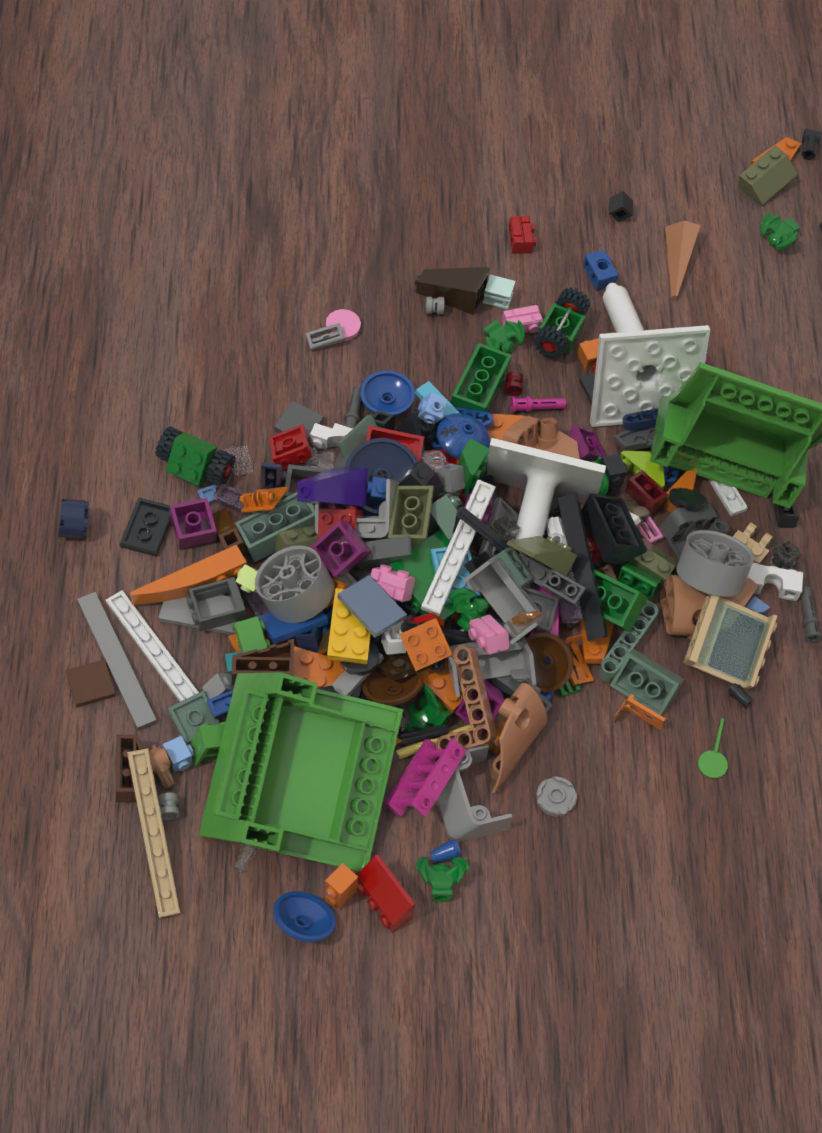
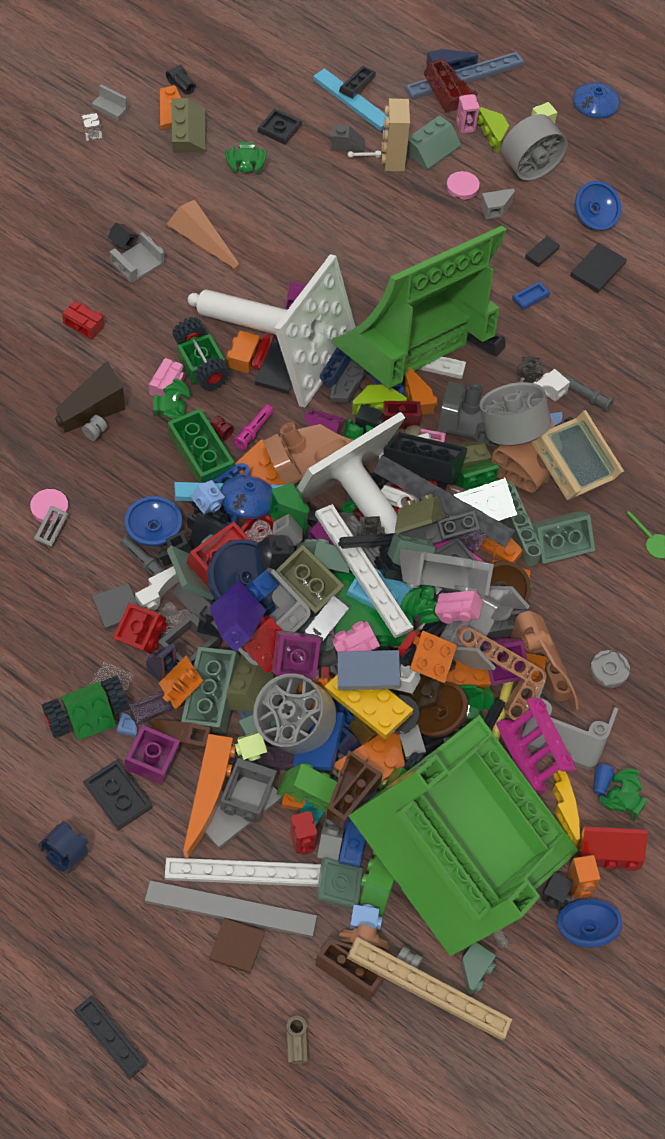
camera: 50 degrees left, 0 degrees up
(42, 771) = (296, 1041): none -> dark tan piece
(201, 857) = (475, 965): none -> sand green slope
(211, 661) = (303, 833): none -> red brick
(314, 877) = (557, 892): none -> black brick
(396, 840) = (566, 809): none -> yellow slope
(499, 292) = (127, 373): light aqua piece -> none
(522, 618) = (465, 570): clear orange piece -> none
(600, 269) = (168, 294): blue brick -> none
(612, 232) = (139, 259): none -> light grey panel
(642, 709) = (585, 557): orange piece -> none
(689, 498) = (436, 390): black tile -> none
(701, 120) = (91, 126): none -> clear brick
(736, 117) = (111, 103): none -> light grey panel
(740, 695) = (619, 485): black pin -> none
(758, 549) = (490, 384): tan plate -> none

